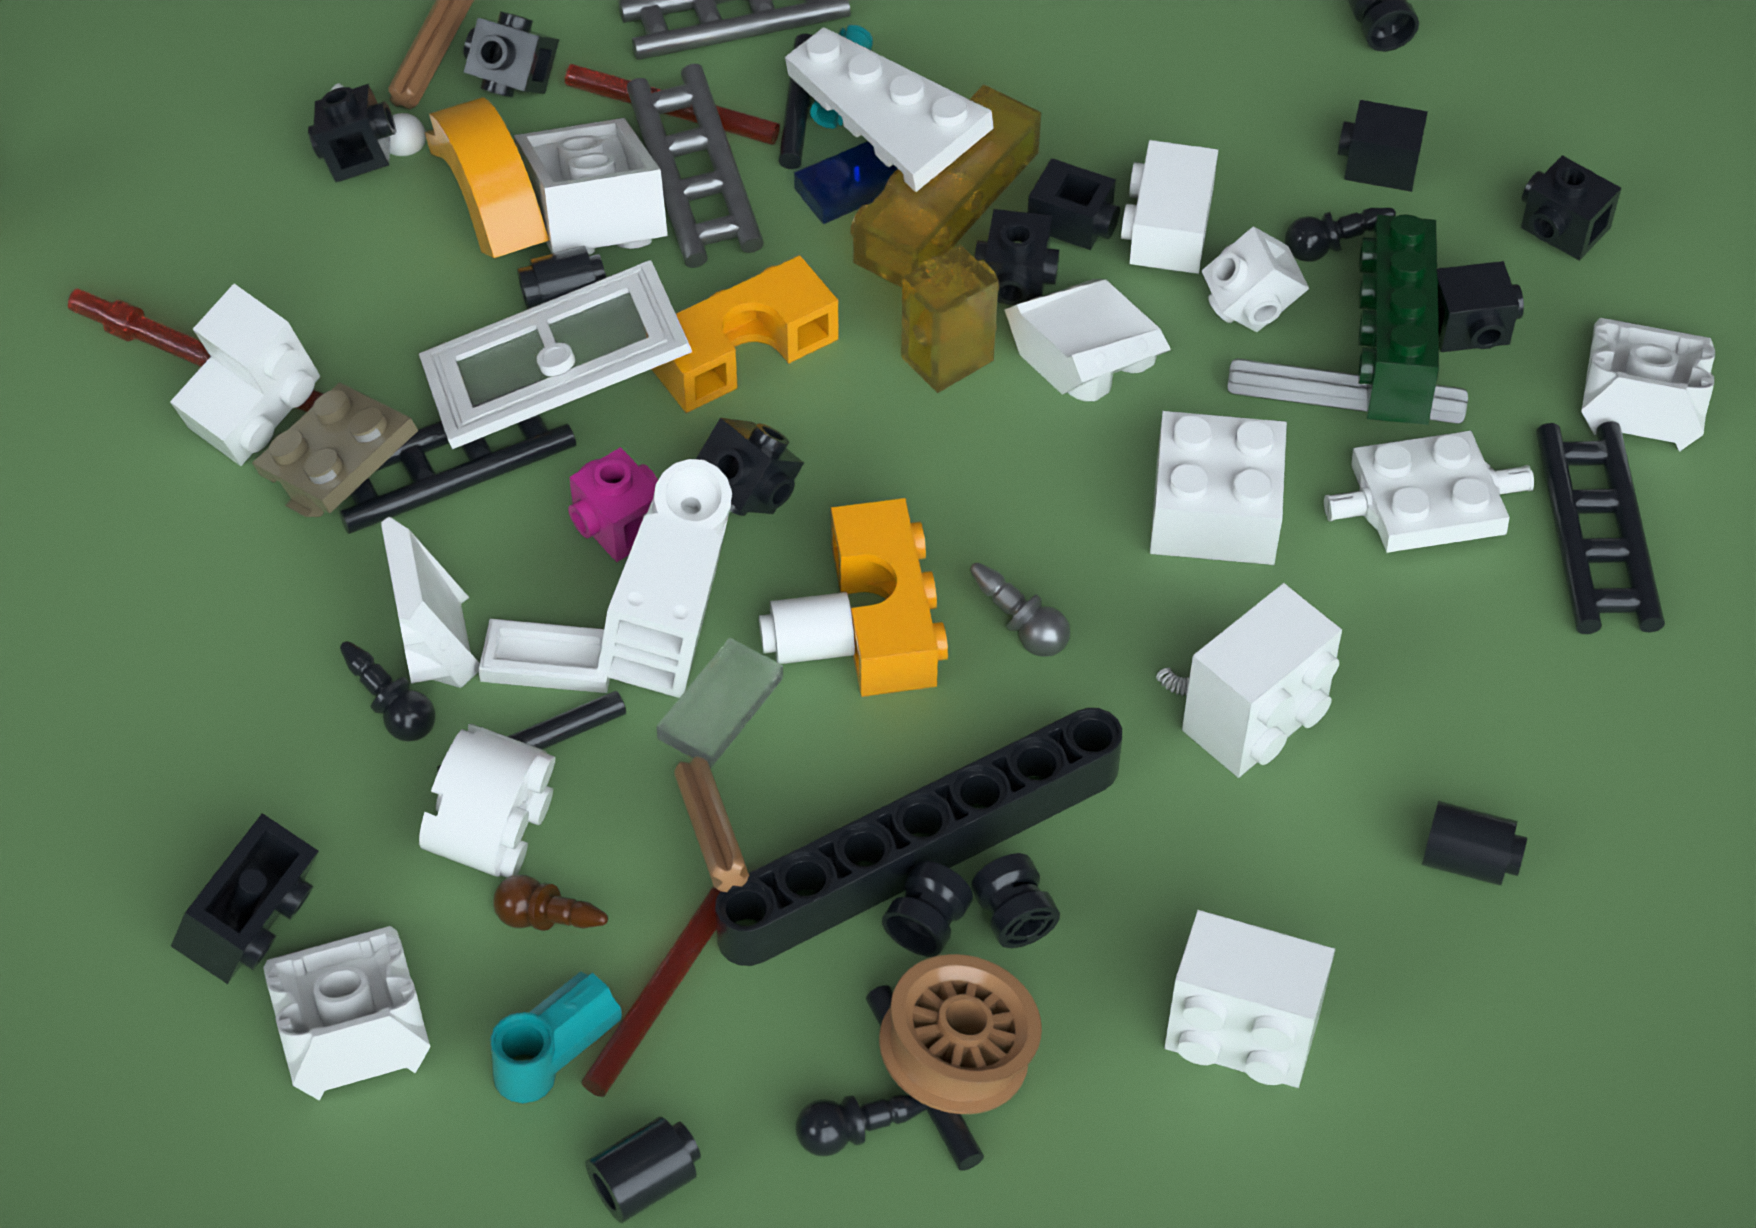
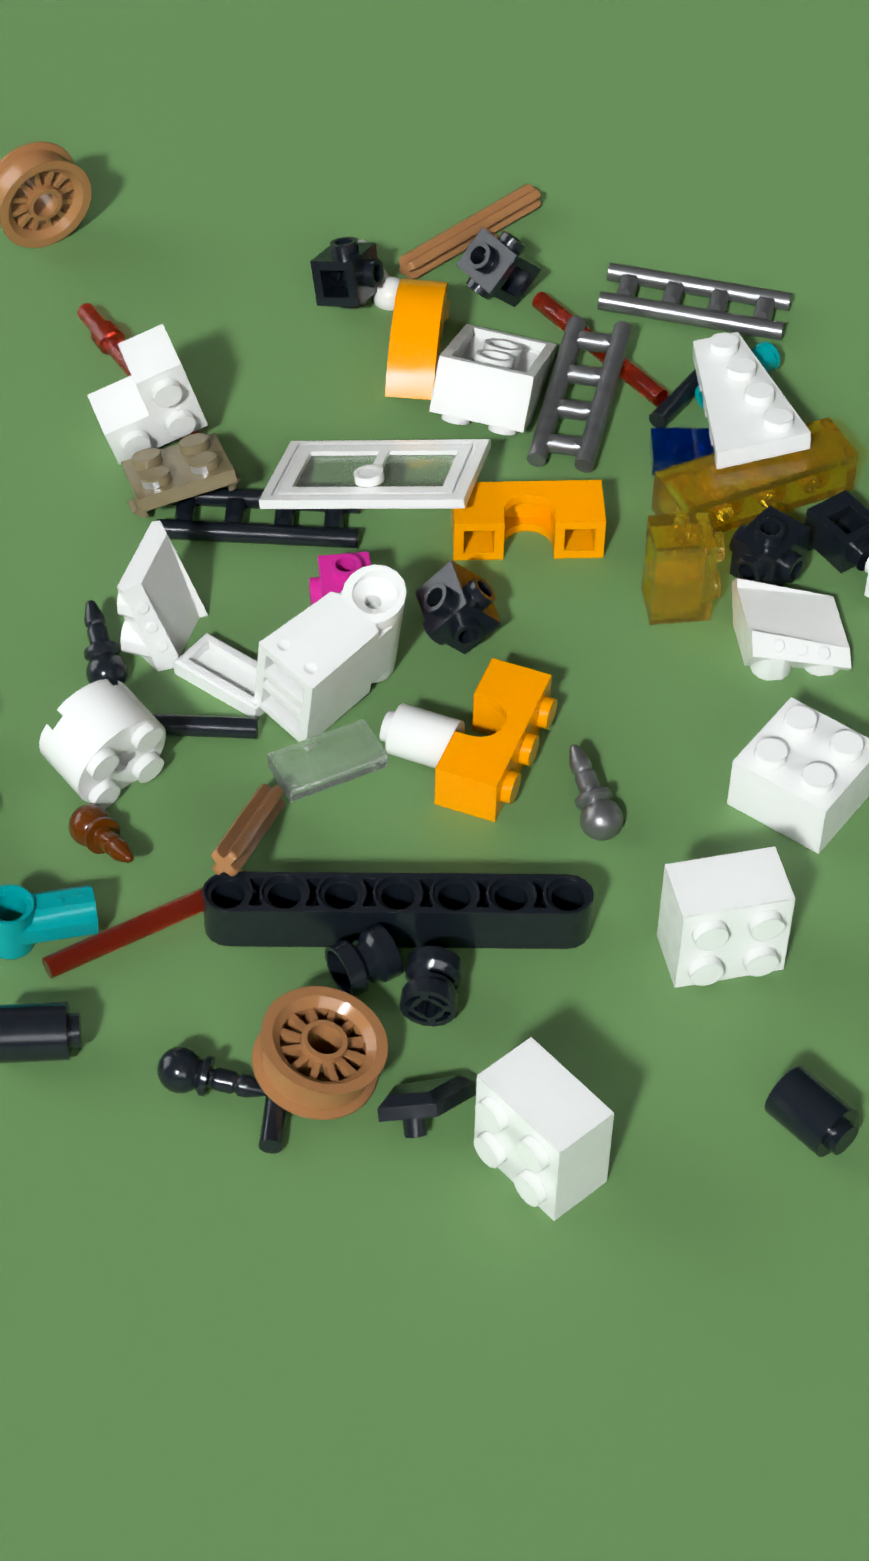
camera: 30 degrees right, 5 degrees down
(558, 275) = (422, 424): black brick -> none
(1095, 1032) = (424, 1100): none -> black piece

